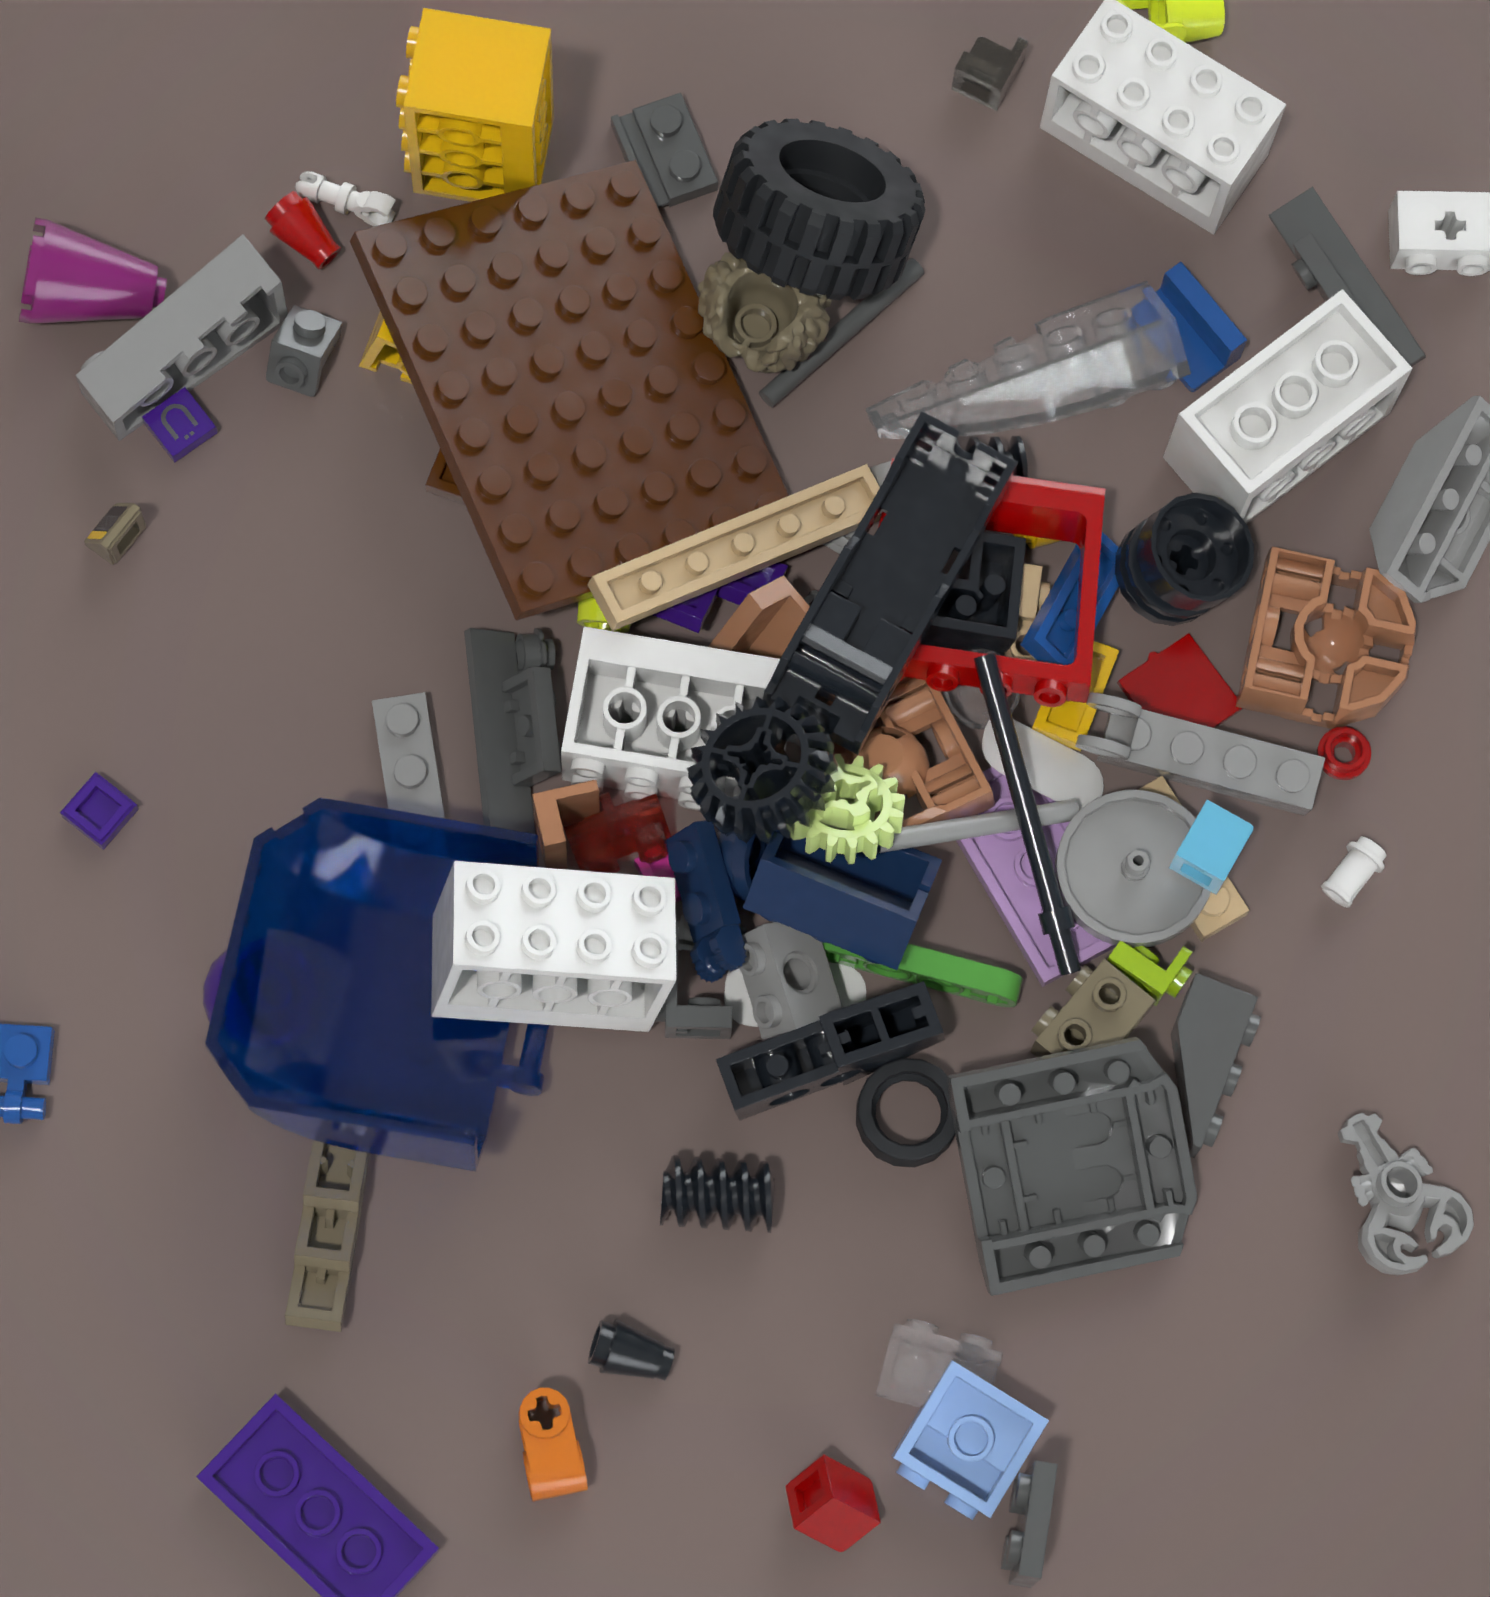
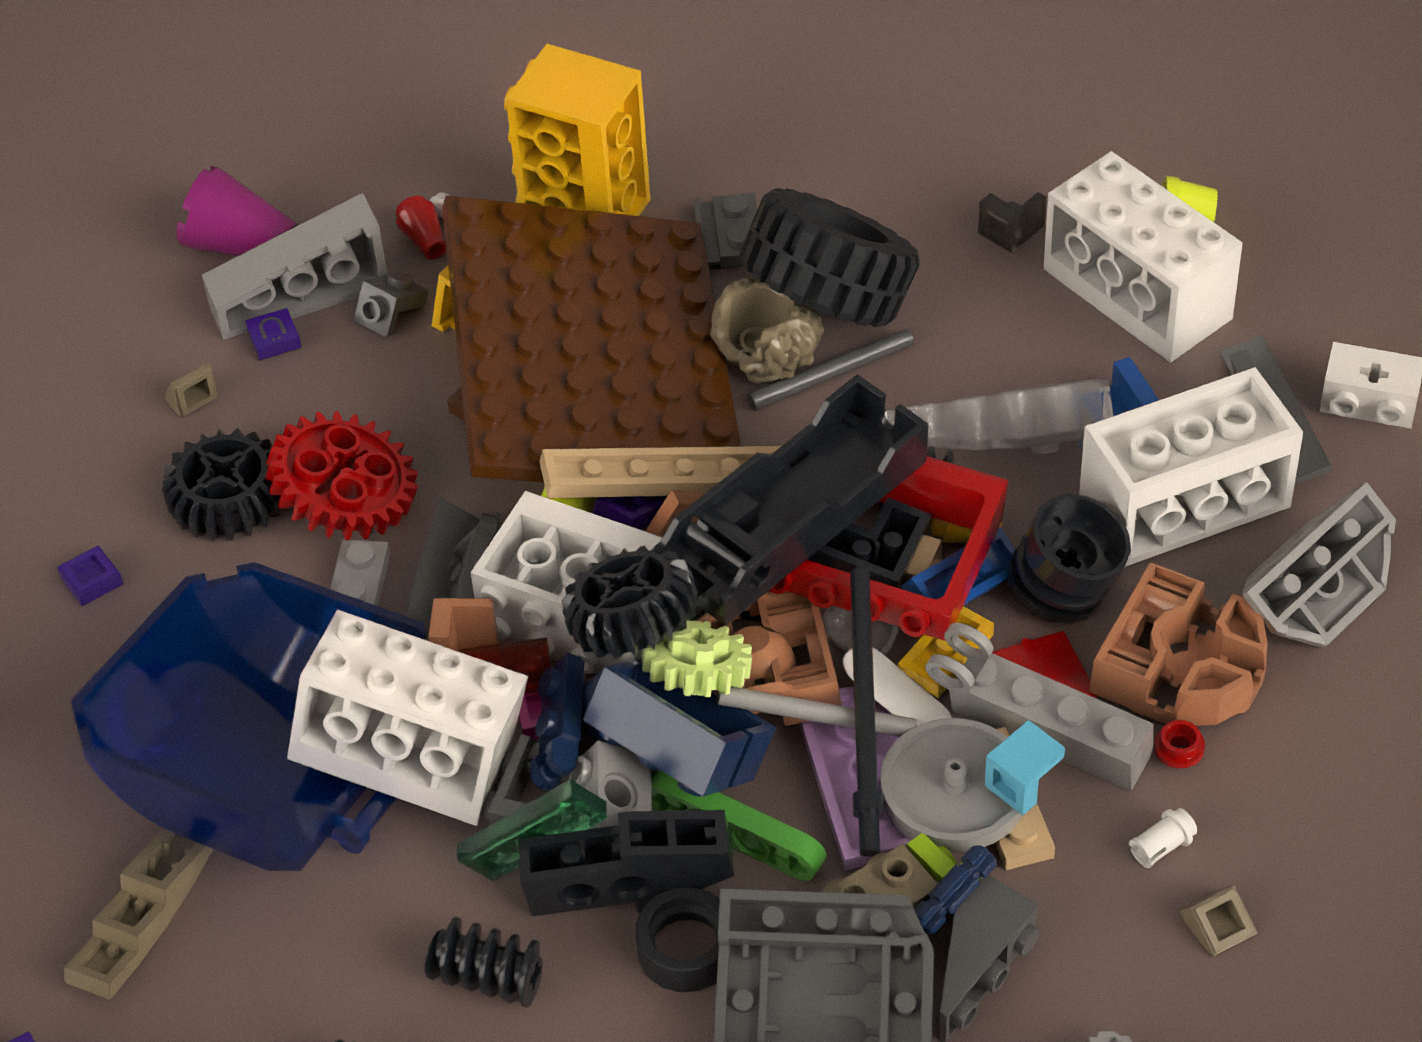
camera: 25 degrees right, 25 degrees down
(230, 670) = (221, 485): none -> black gear
(391, 640) = (359, 497): none -> red gear
(689, 1060) = (561, 810): none -> clear green plate
(1172, 1001) = (955, 888): none -> dark blue axle
(1427, 951) = (1219, 920): none -> dark tan slope

